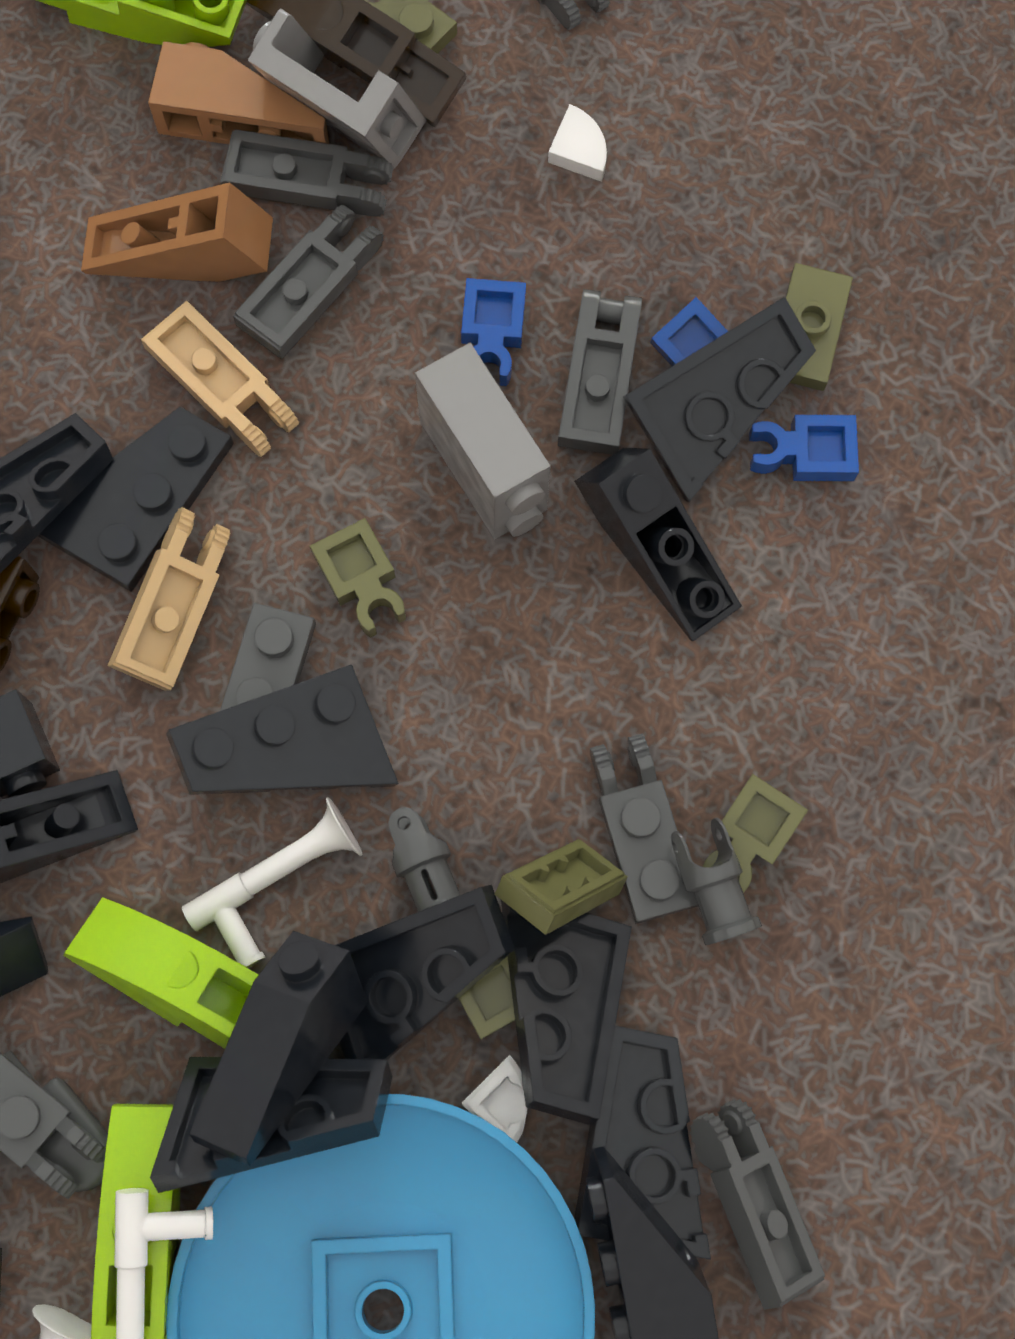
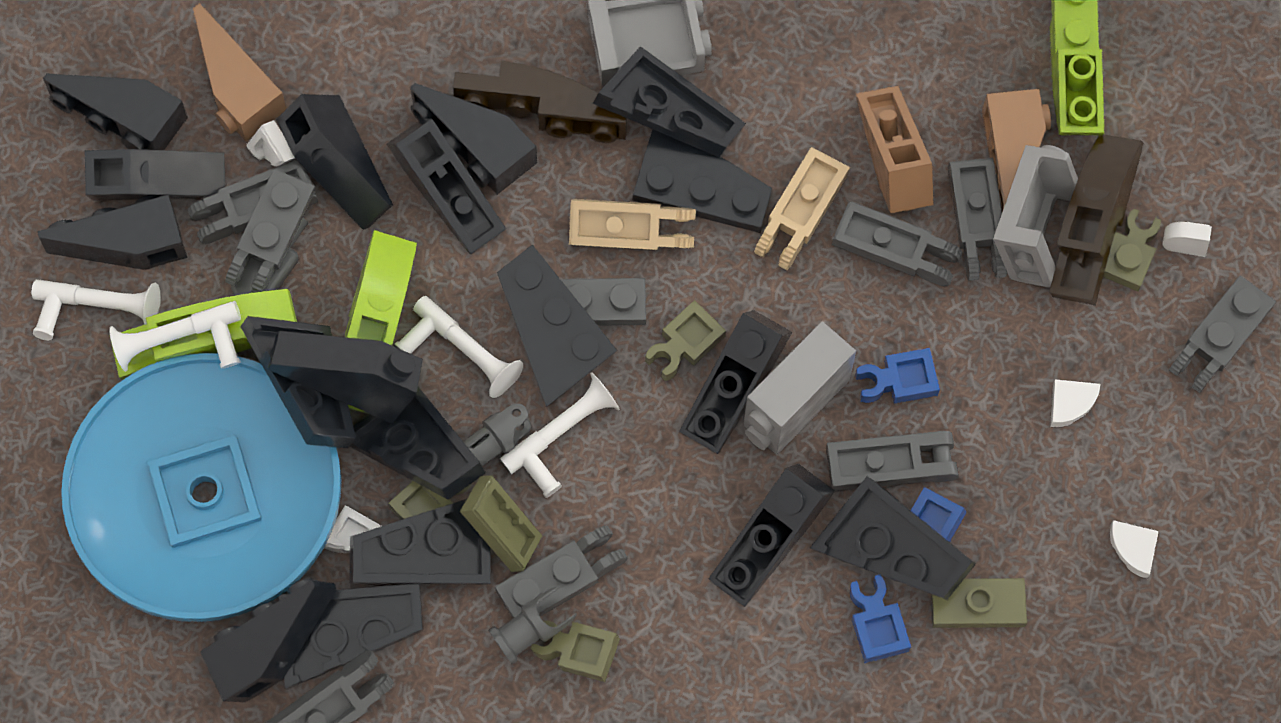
camera: 75 degrees right, 5 degrees down
(435, 525) = (738, 371): none -> black slope
(455, 829) = (526, 452): none -> white piece
(783, 133) = (1134, 546): none -> white tile

